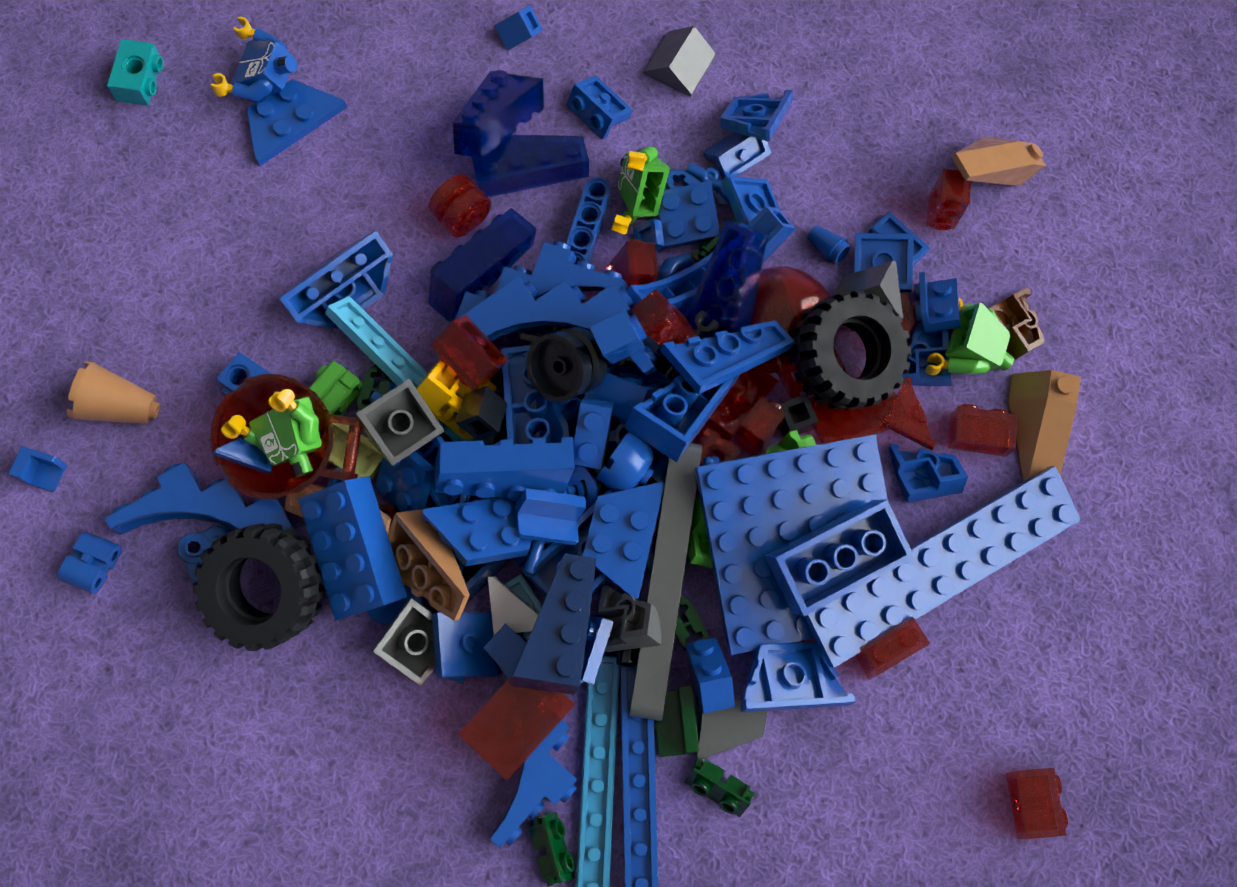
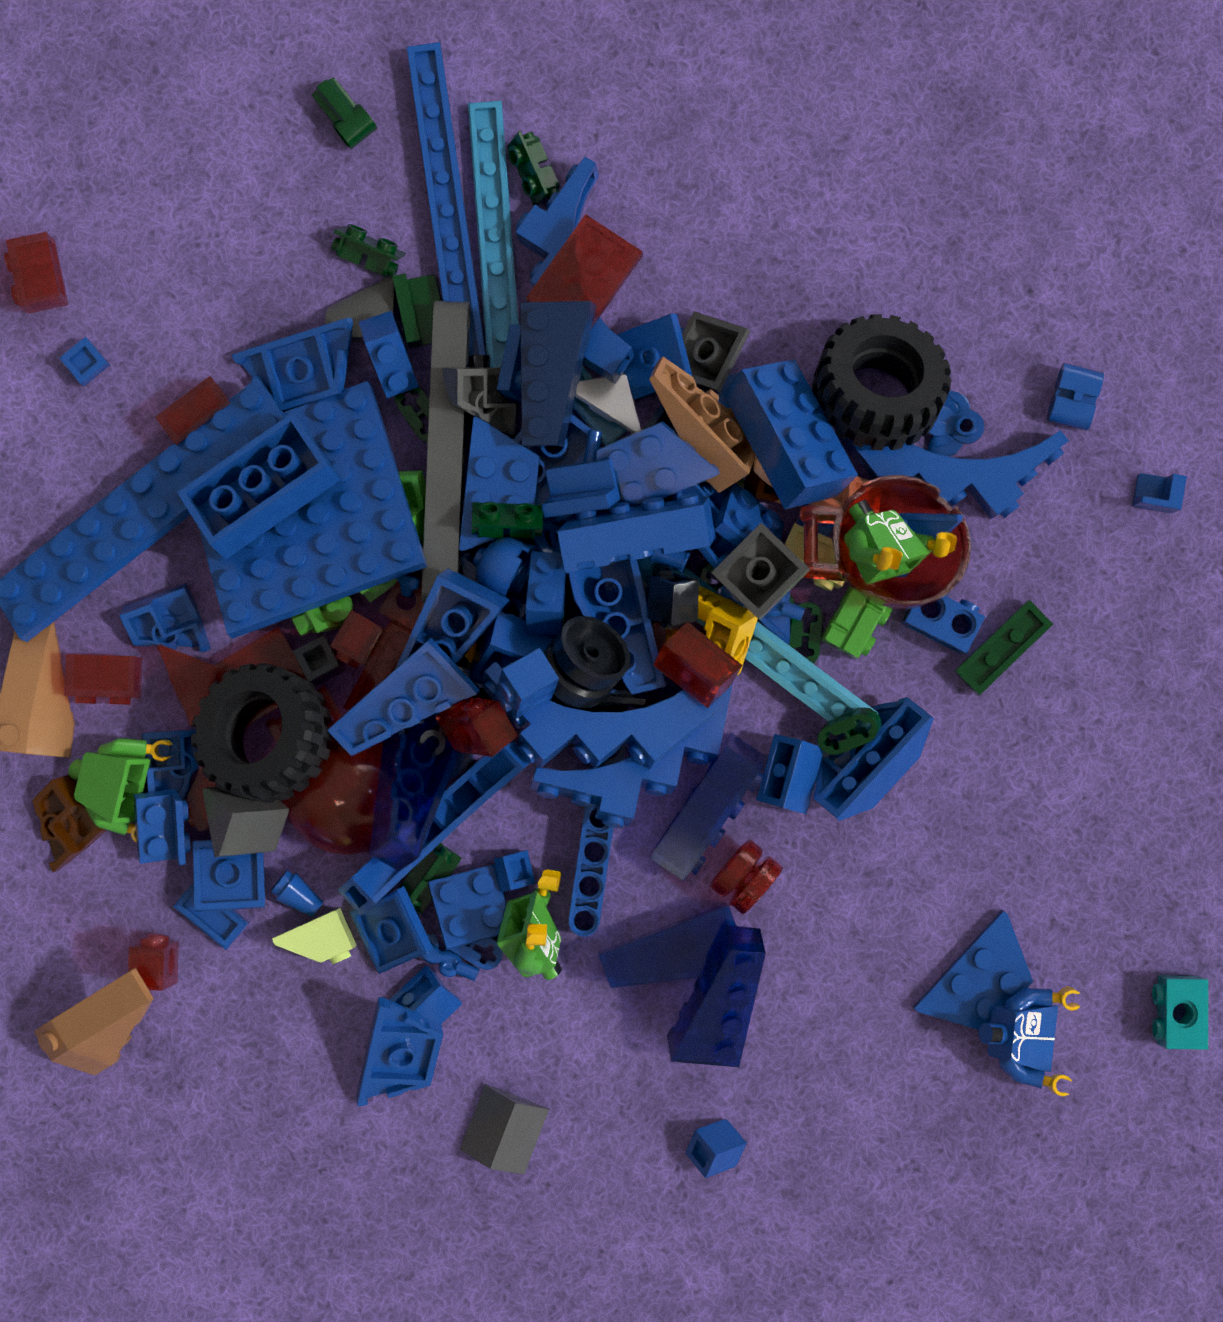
camera: 175 degrees right, 15 degrees up
(109, 397) = (1098, 580): medium nougat cone -> none
(207, 359) = (1003, 647): none -> dark green plate
(352, 300) = (846, 724): none -> dark green beam
(408, 278) = (790, 774): none -> blue brick
(597, 105) = (598, 1047): blue bracket -> none
(618, 499) = (522, 519): none -> dark green hinge
(636, 263) = (527, 818): clear red brick -> none
(673, 264) = (485, 837): blue arm -> none
(814, 207) = (320, 939): none -> yellowish green slope
(992, 712) = (84, 361): none -> blue plate

